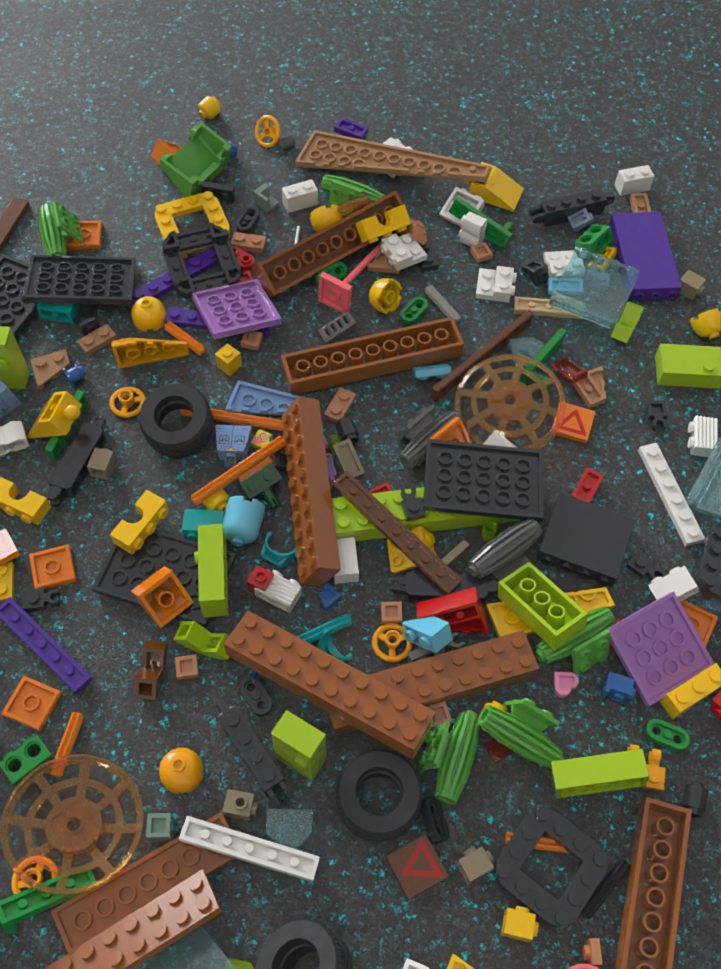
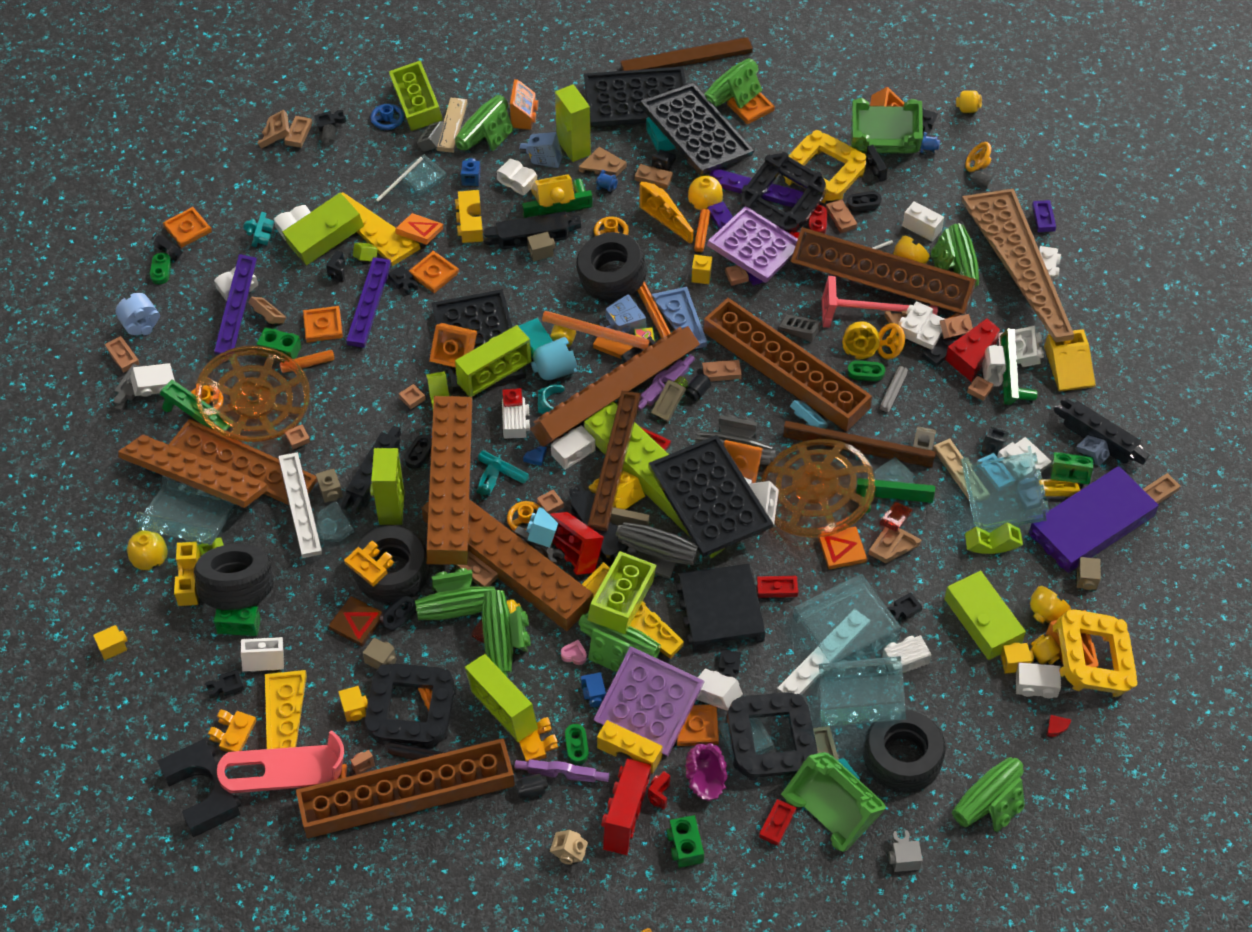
camera: 60 degrees right, 5 degrees down
(132, 535) = (491, 300): yellow arch -> none
(151, 674) = (386, 379): reddish brown brick -> none
(155, 803) = (297, 436): none -> nougat plate
(160, 827) = (281, 444): sand green panel -> none
(181, 770) = (332, 437): light orange cylinder -> none
(261, 484) = (597, 354): dark green brick -> none
(263, 198) = (900, 199): sand green panel -> none
(342, 271) = (854, 290): green plate -> none
(353, 204) = (936, 260): clear orange axle -> none
(371, 229) = (915, 287): yellow arch -> none
(384, 821) = (365, 566): none -> light orange plate
(412, 506) = (644, 456): black plate -> none
(413, 281) = (893, 341): none -> light orange piece
(446, 235) = (969, 350): none -> red wedge
(491, 525) = (677, 529): clear neon green piece -> none
(496, 284) = (952, 417): white plate -> none
(509, 310) = (924, 438): none -> dark tan brick
(634, 180) = (1188, 468): white brick -> none
(651, 457) = (848, 621): none -> clear light blue panel
(691, 763) = (553, 768): none -> medium lavender piece

